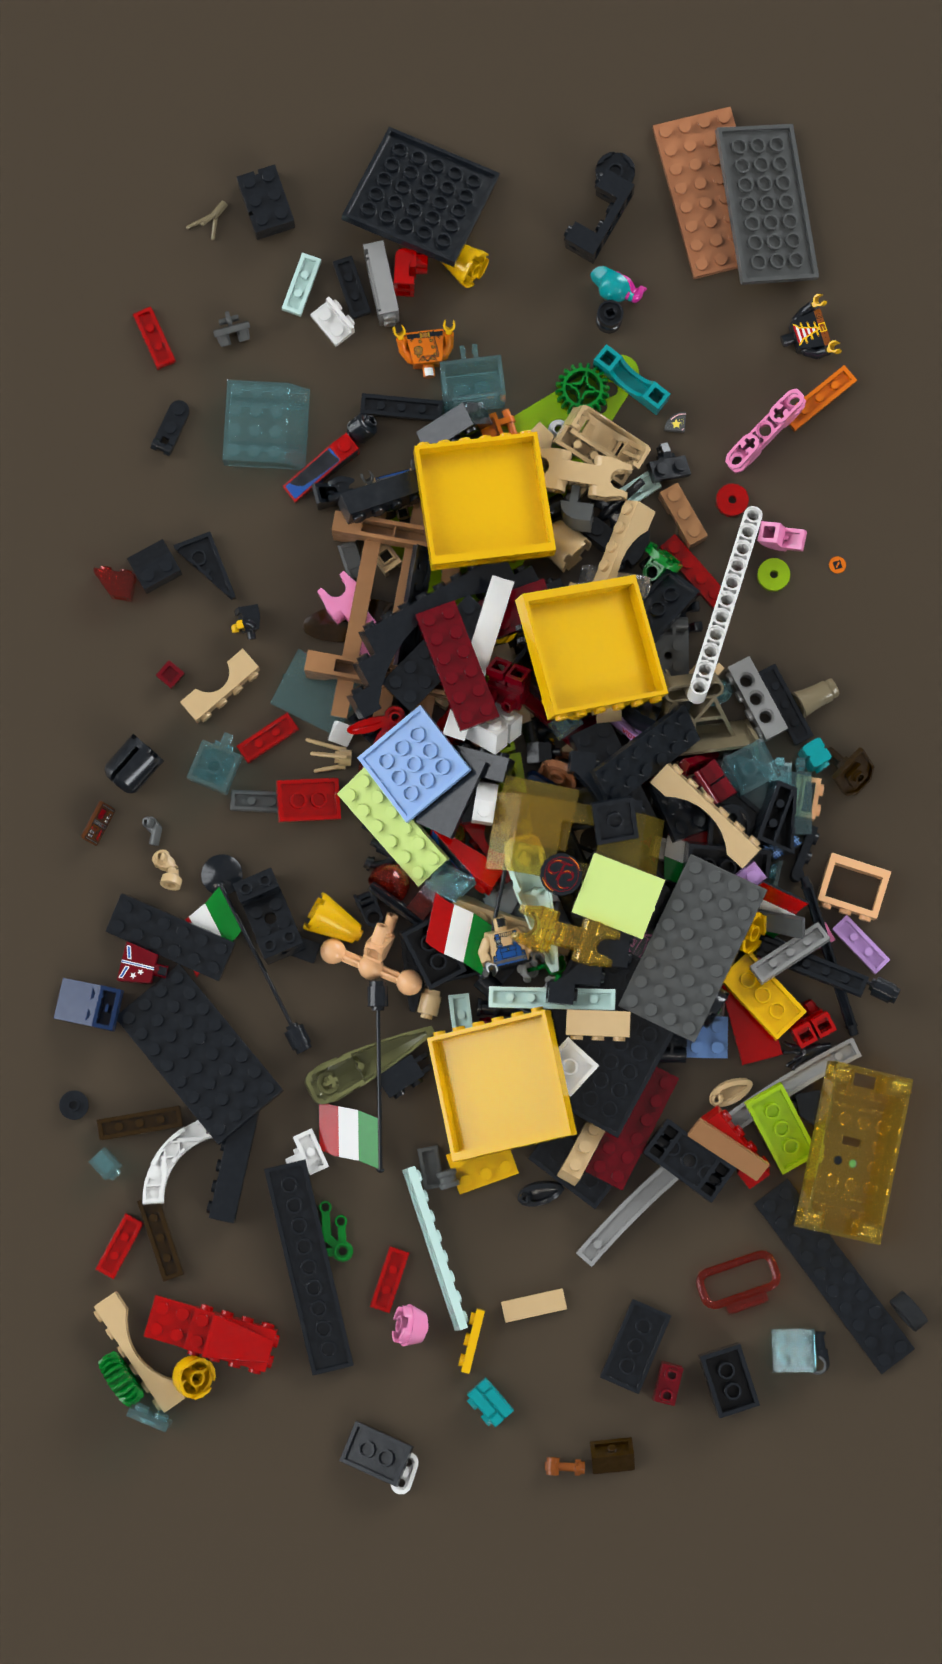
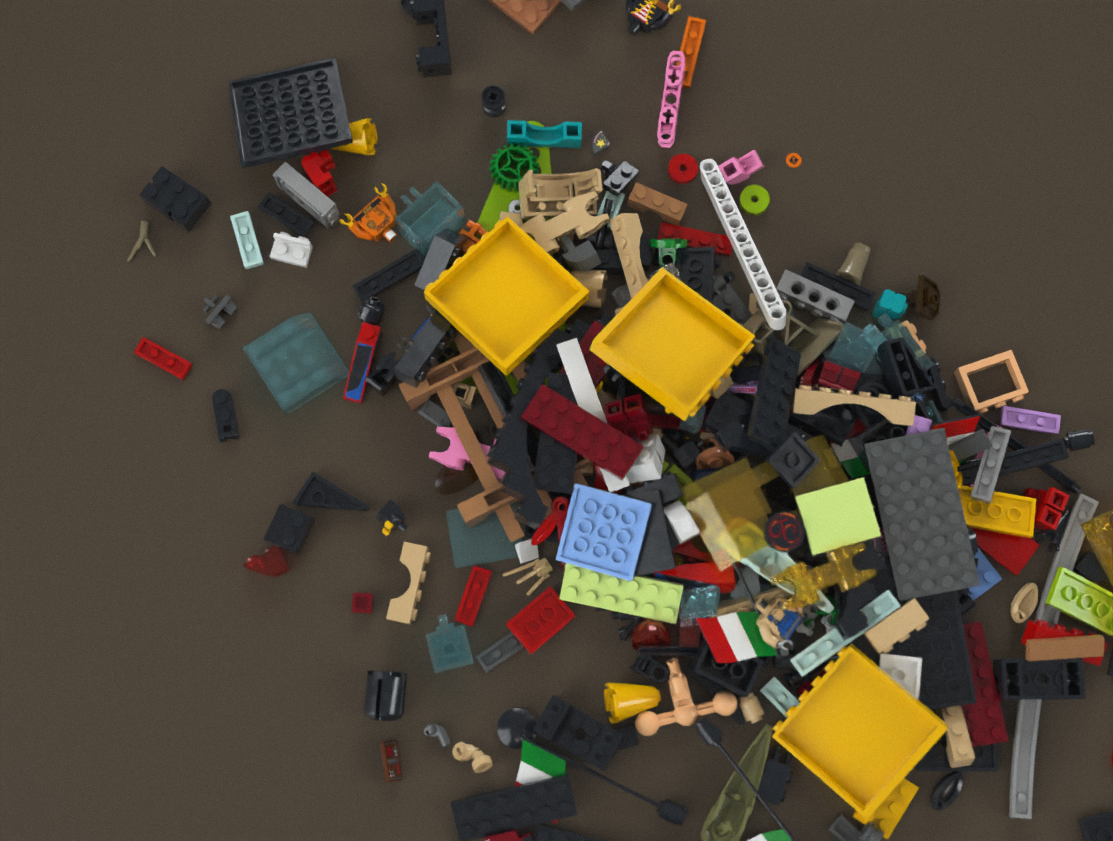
camera: 30 degrees left, 5 degrees down
(616, 286) = (480, 76): teal hair -> none

